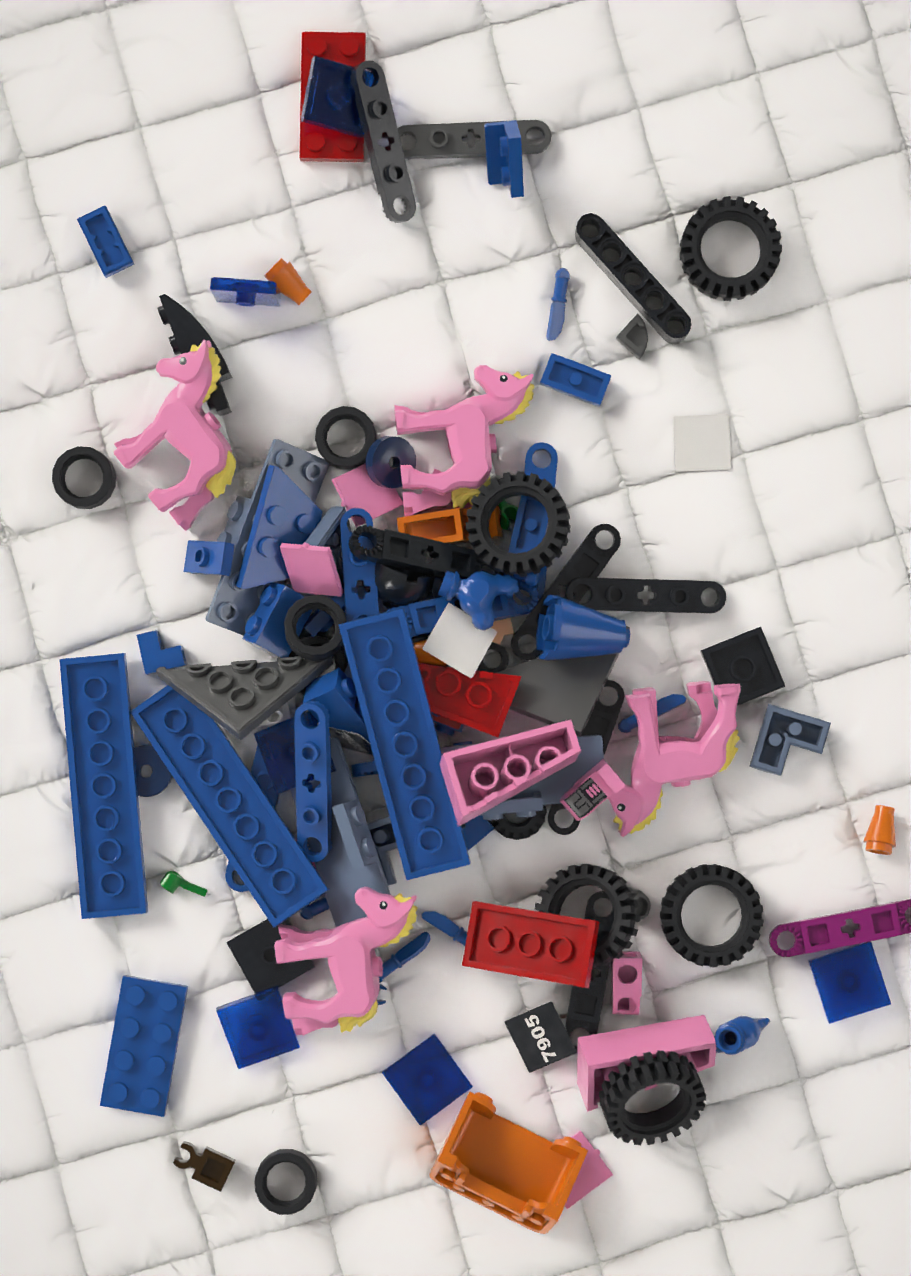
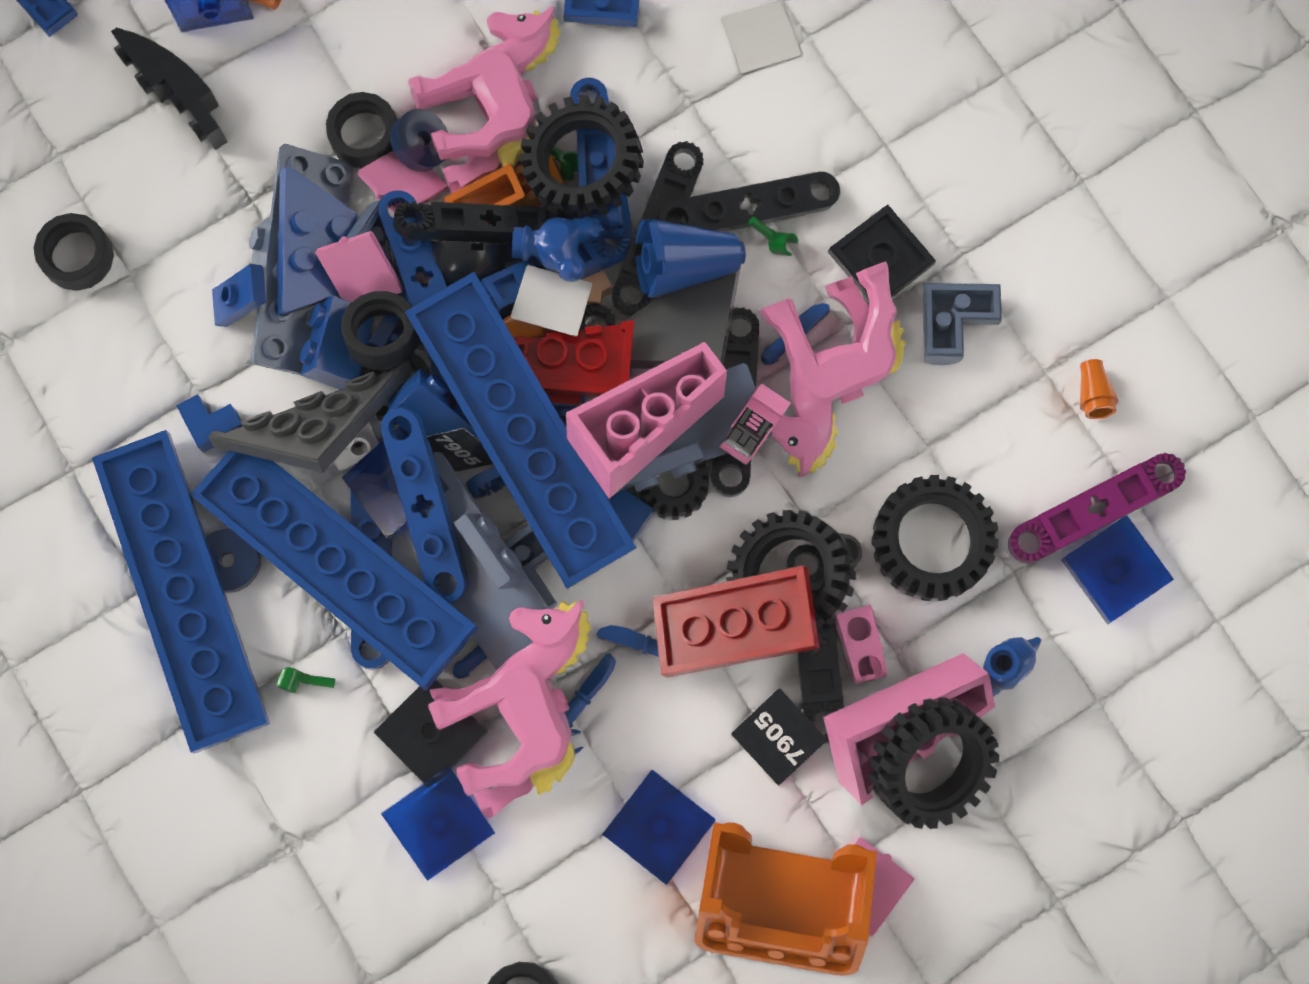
camera: 20 degrees left, 10 degrees down
(144, 1045) = (305, 887): blue plate -> none
(190, 432) = (187, 163): bright pink animal -> none
(660, 629) = (776, 240): none -> green hand

